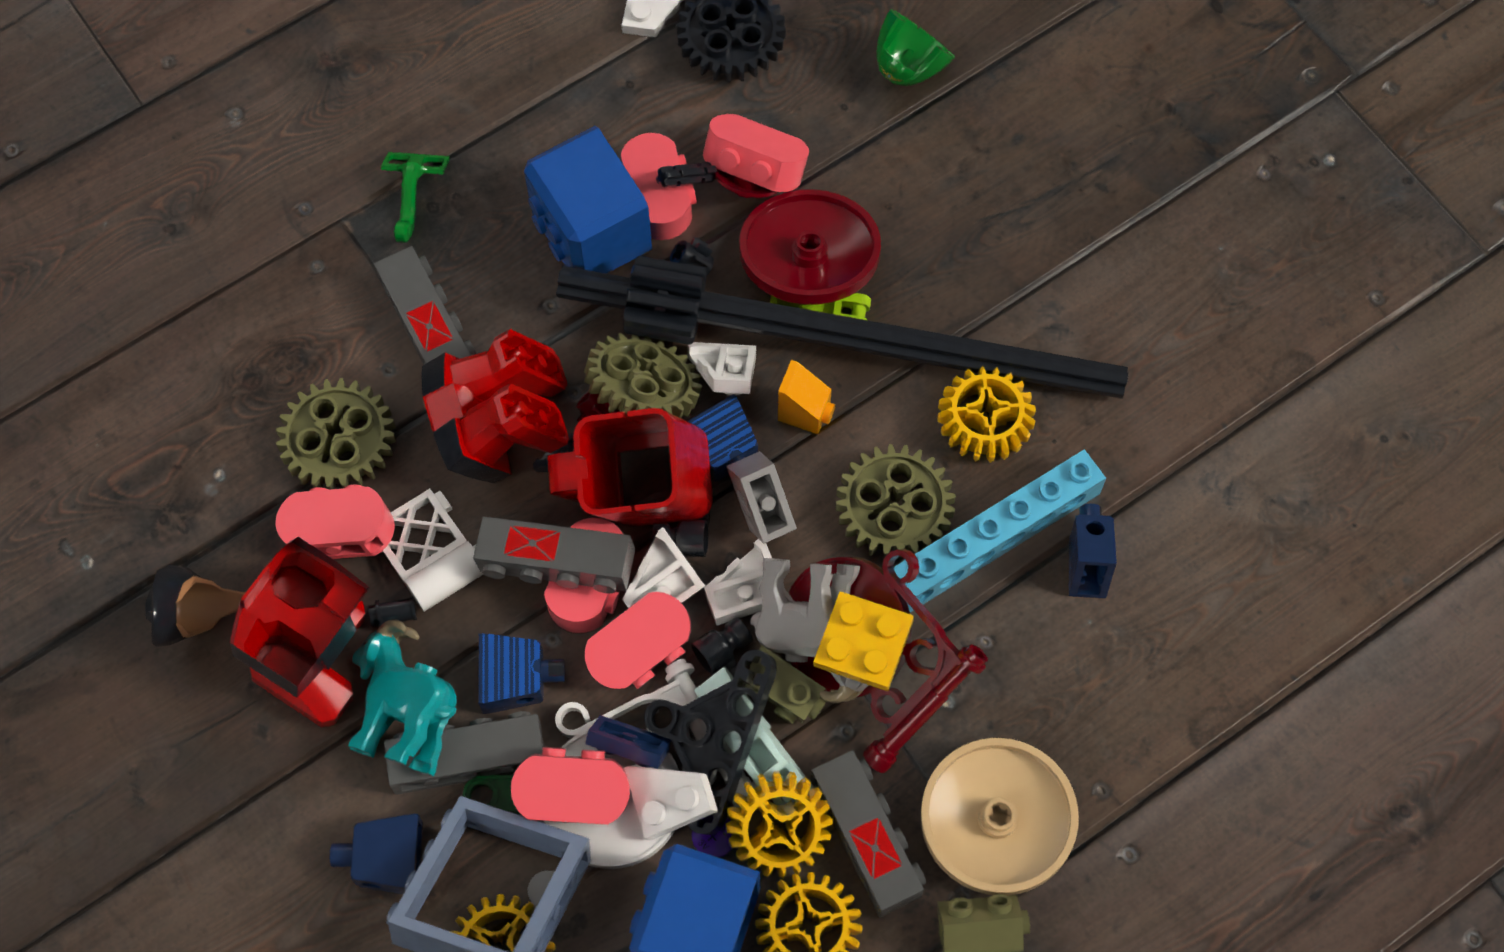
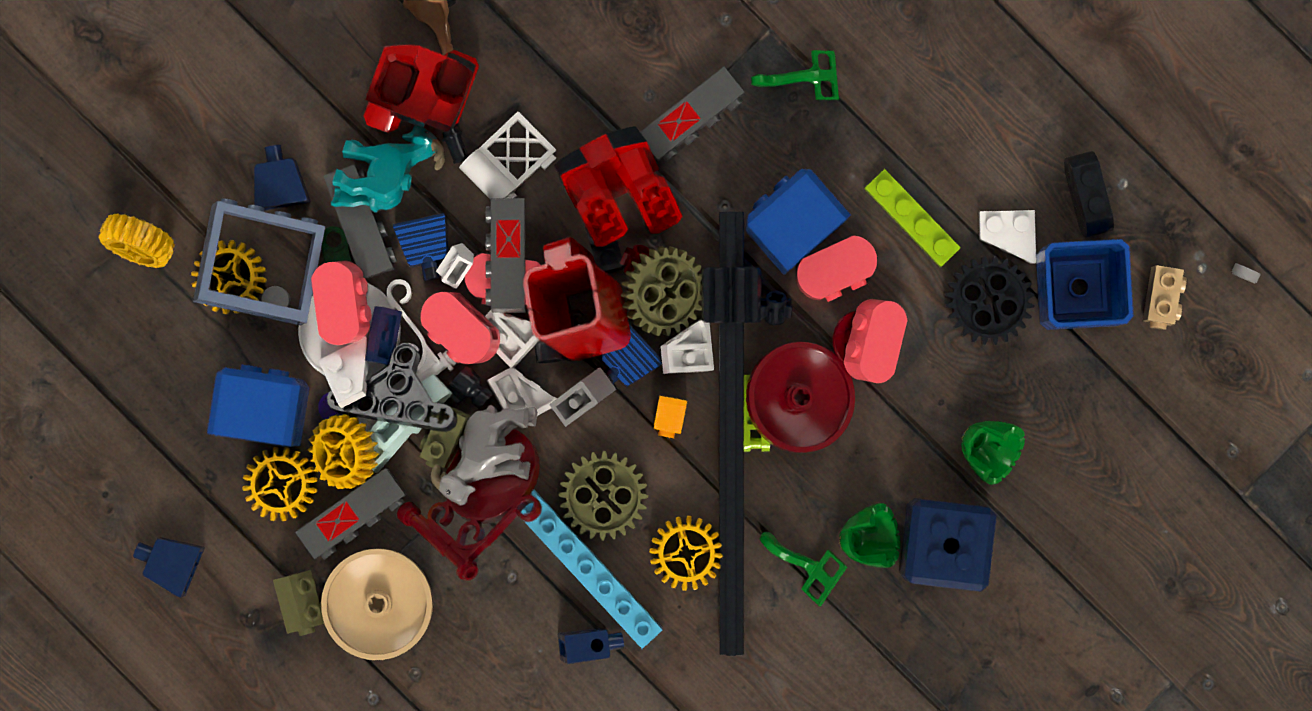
camera: 80 degrees right, 20 degrees up
(337, 521) = (513, 88): coral brick -> none
(366, 442) = (580, 96): olive gear -> none
(554, 629) = (455, 265): none -> white piece
(615, 98) = (912, 218): none -> lime plate
(686, 174) = (839, 291): black axle -> none
(863, 641) = (468, 490): yellow plate -> none
(998, 200) = (871, 537): none -> green hair
(1016, 131) = (926, 529): none -> dark blue plate
(1028, 272) = (814, 568): none -> green piece

